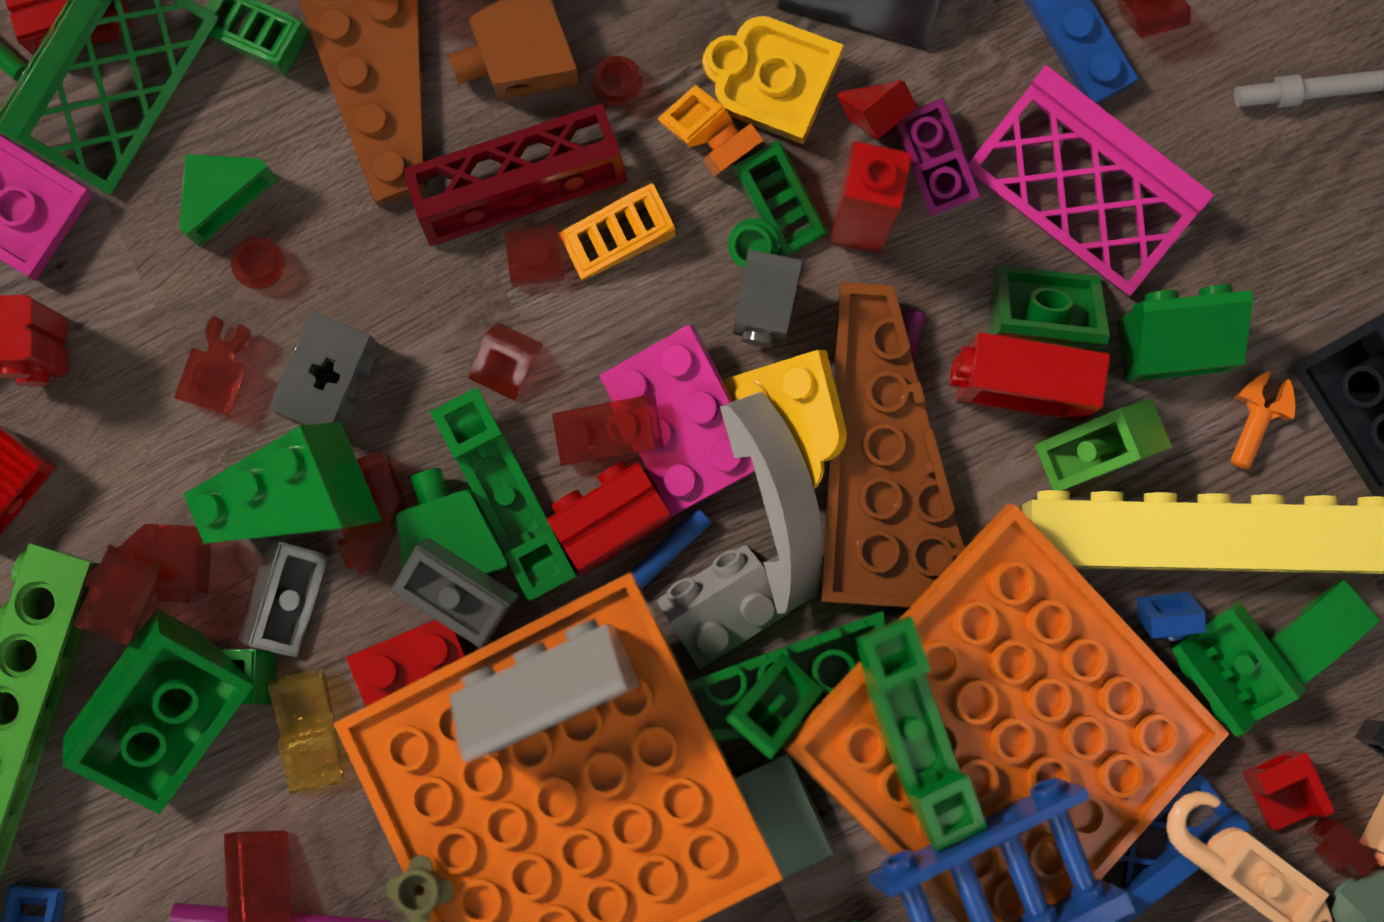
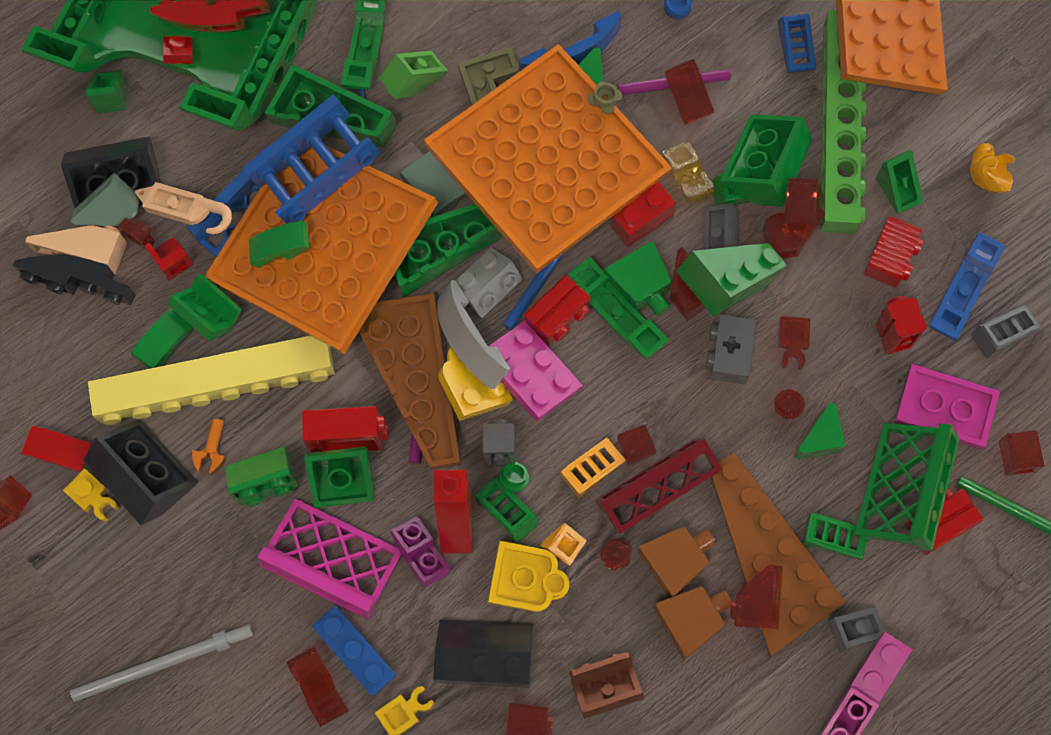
camera: 170 degrees right, 10 degrees down
(454, 592) = (627, 246): dark grey slope -> none
(505, 360) = (636, 385): clear red slope -> none
(540, 689) = (565, 193): light grey slope -> none
(608, 430) = (569, 354): clear red plate -> none
(730, 146) = (539, 527): orange plate -> none
(774, 705) = (447, 219): green slope -> none
(878, 106) = (461, 572): red slope -> none
(915, 734) = (367, 218): green slope -> none
(1089, 743) = (280, 241): none -> green slope
(1103, 445) = (284, 411): bright green slope -> none
(1171, 616) = (244, 329): blue plate -> none

